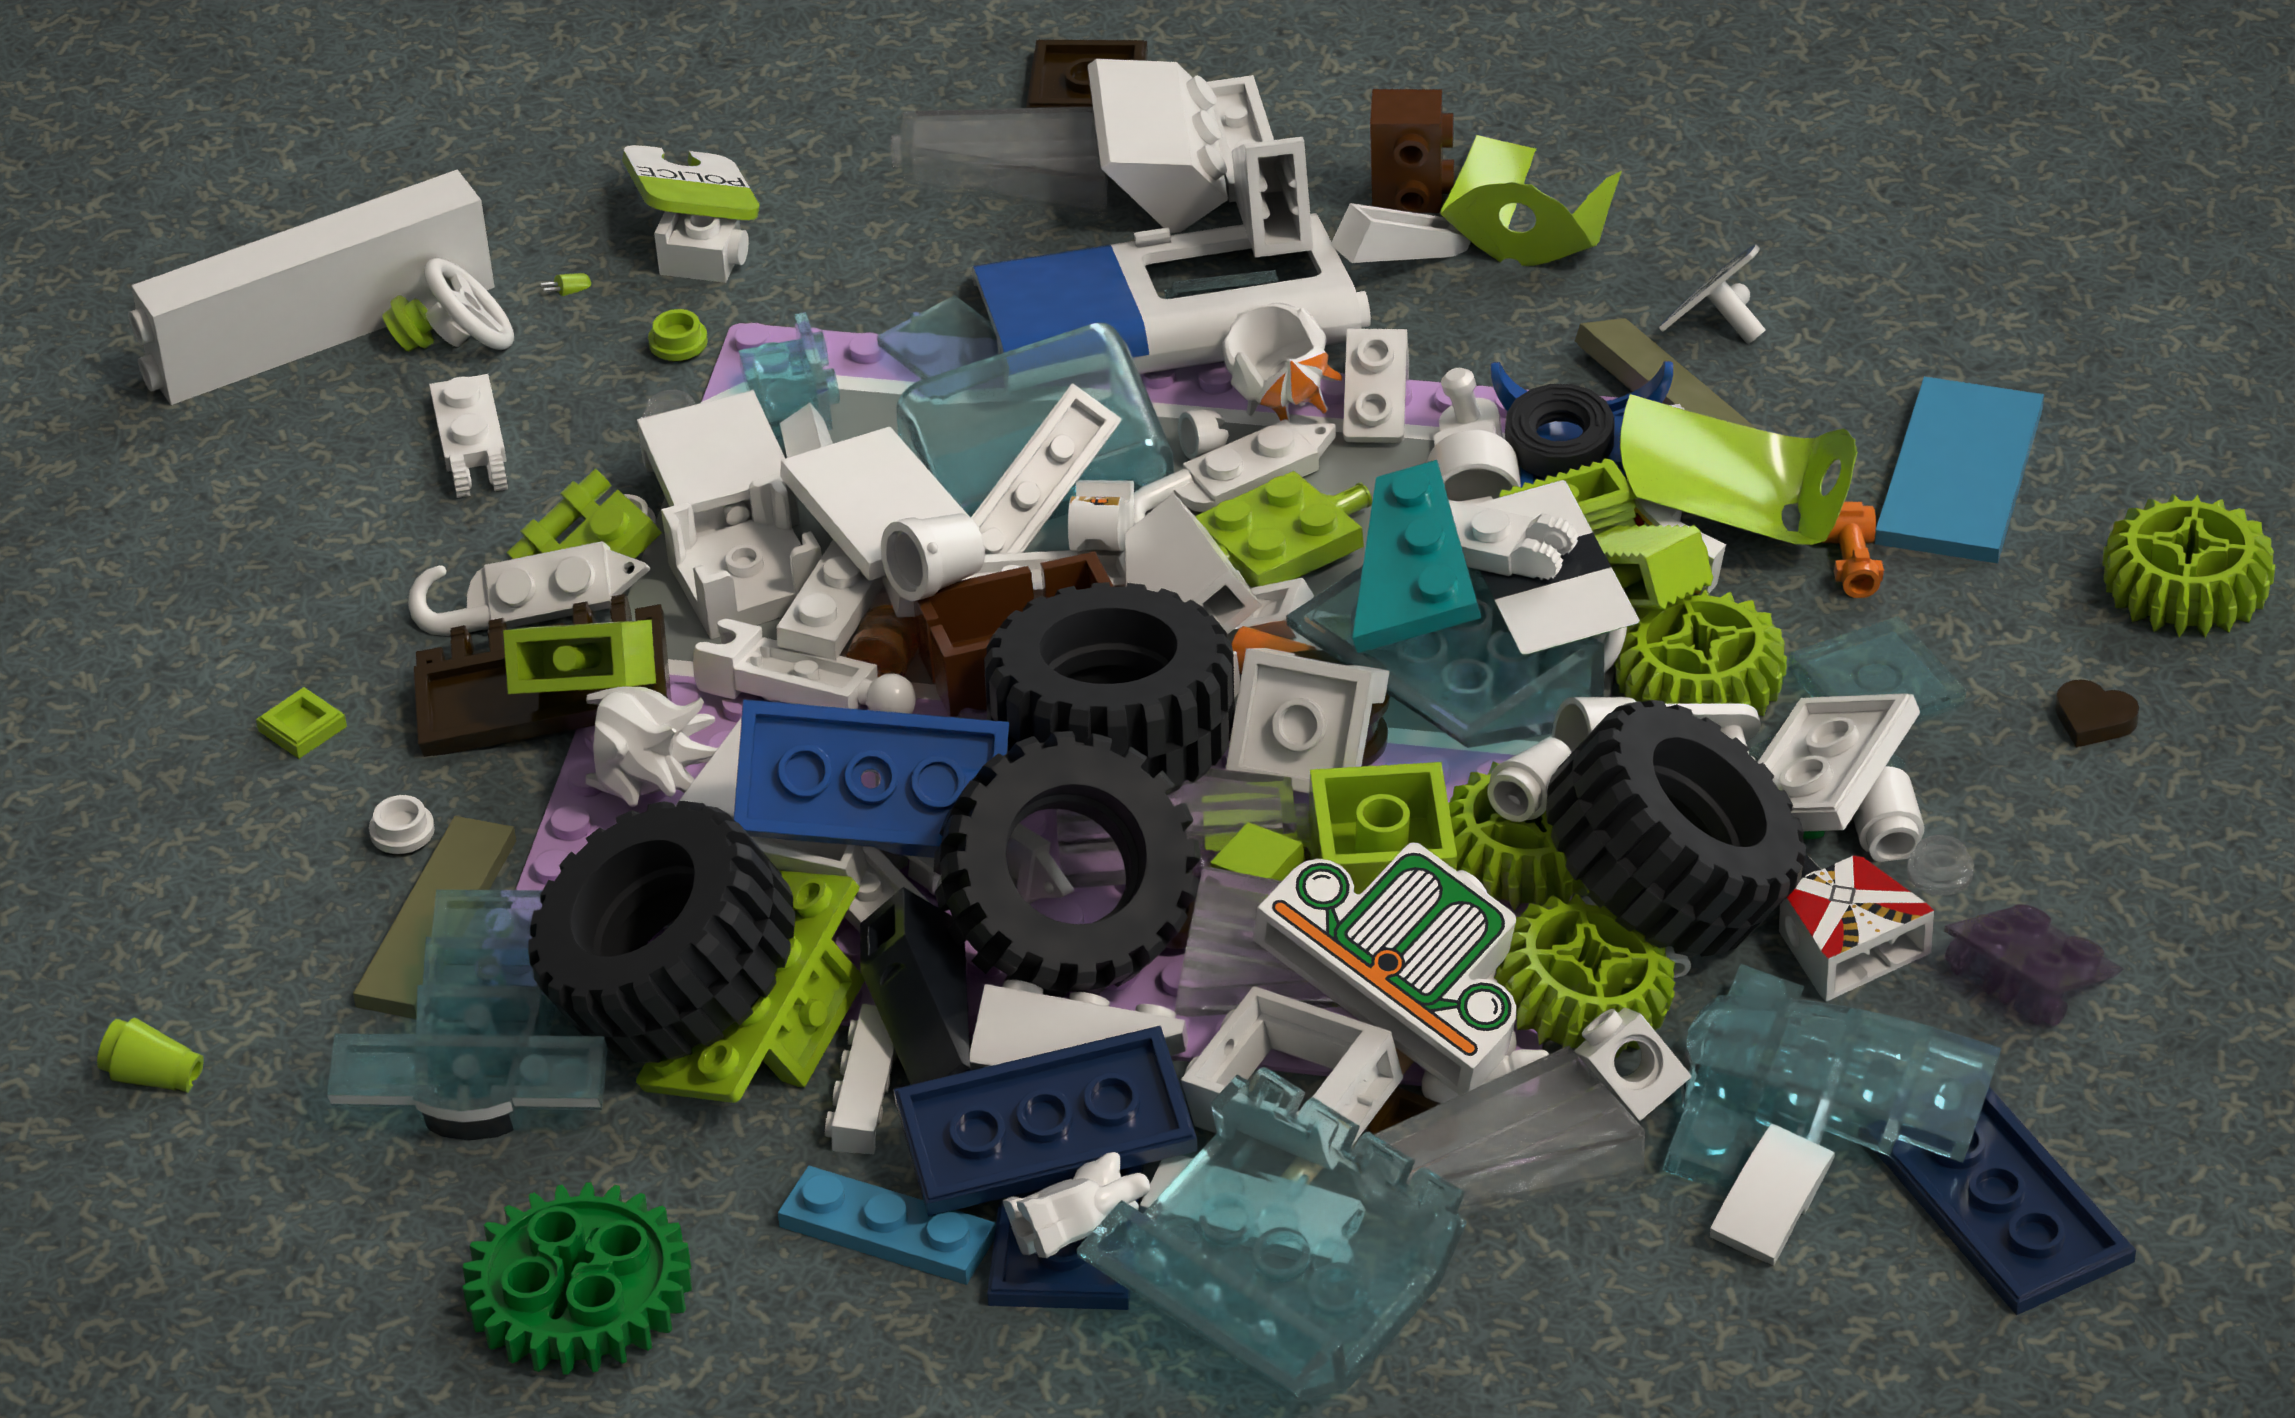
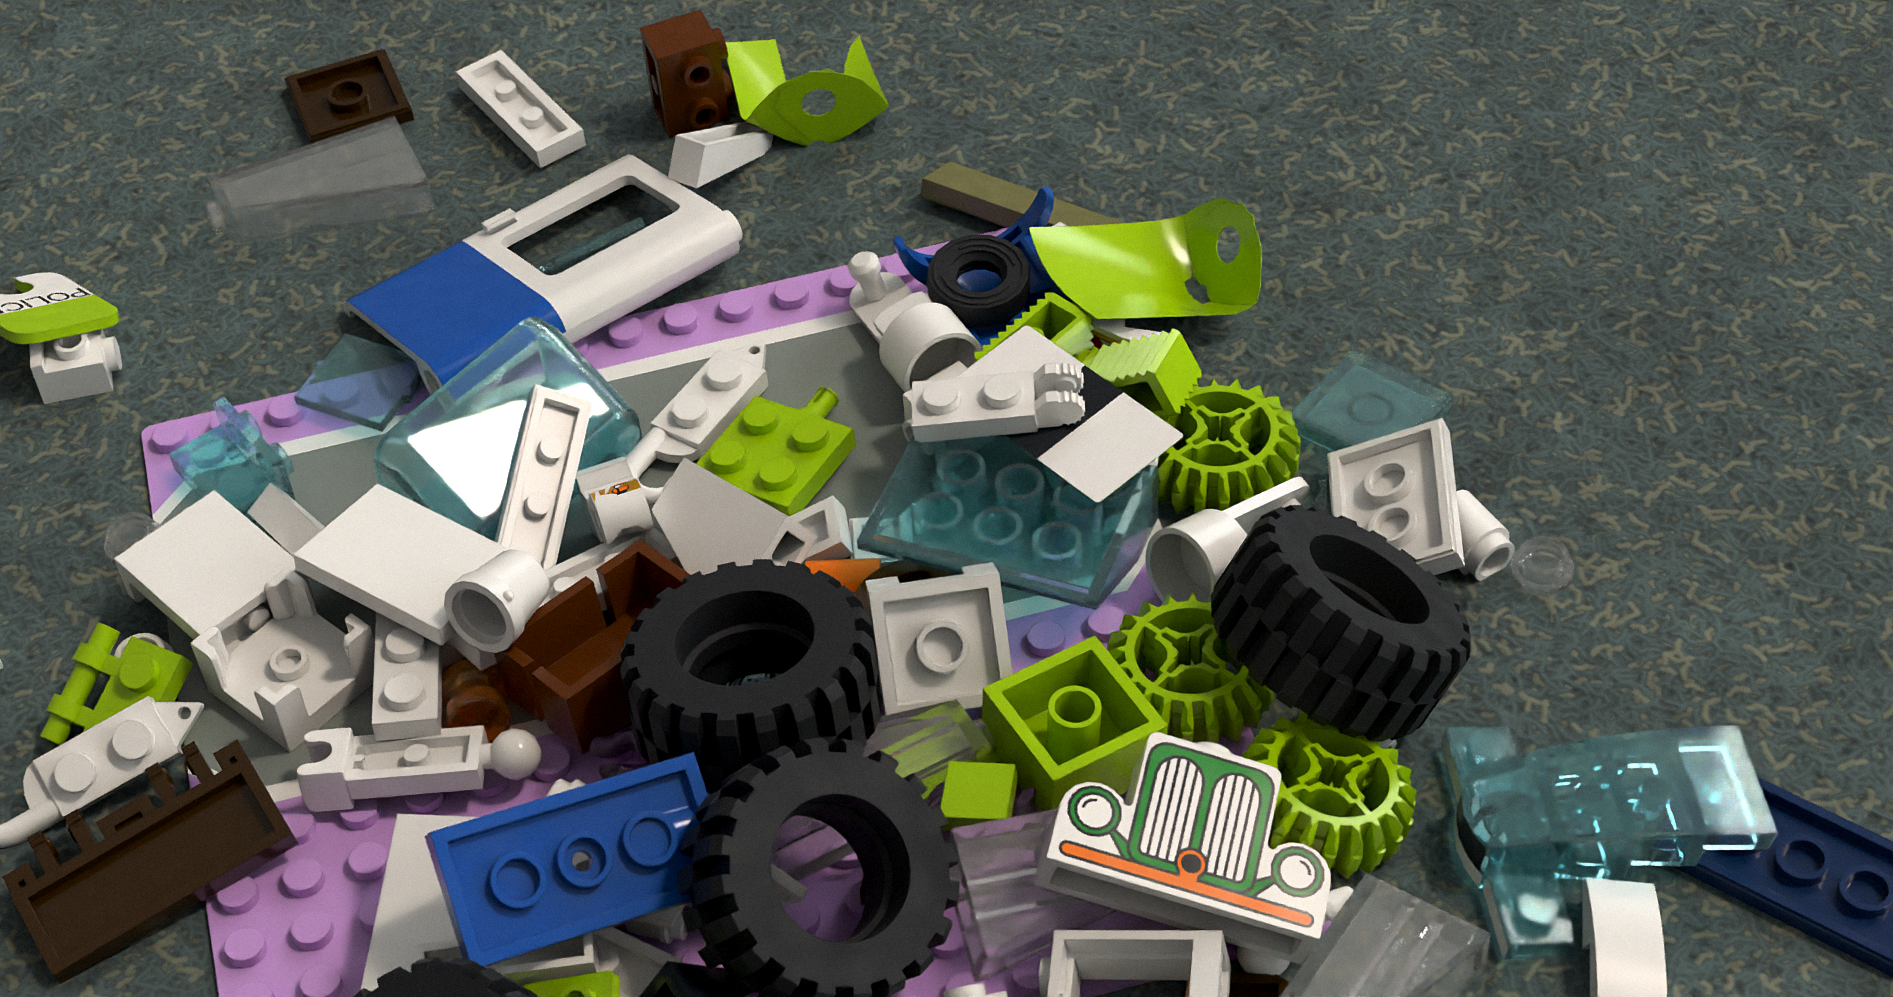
camera: 25 degrees left, 5 degrees up
(579, 656) = (192, 830): lime brick -> none
(645, 743) = (305, 896): white hair -> none
(677, 335) = (96, 458): lime plate -> none
(1159, 138) = (460, 130): white slope -> none
(1201, 432) = (648, 389): white hinge -> none
(1273, 195) = (597, 148): white slope -> none
(1277, 358) = (693, 295): white hair -> none
(1375, 385) = (779, 291): white bracket -> none
(1412, 562) = (957, 448): teal wing -> none
(1521, 783) = (1184, 626): white cone -> none
(1659, 1069) = (1453, 868): white brick -> none
(1728, 299) = (1016, 106): white shield -> none
(1852, 530) = (1289, 316): orange bar -> none
(1853, 925) = (1519, 652): white torso -> none
(1959, 470) = (1310, 203): dark azure tile -> none
(2026, 960) = (1654, 610): clear purple hinge -> none
(2095, 714) = (1566, 379): dark brown tile -> none
(2221, 584) = (1556, 222): lime gear -> none

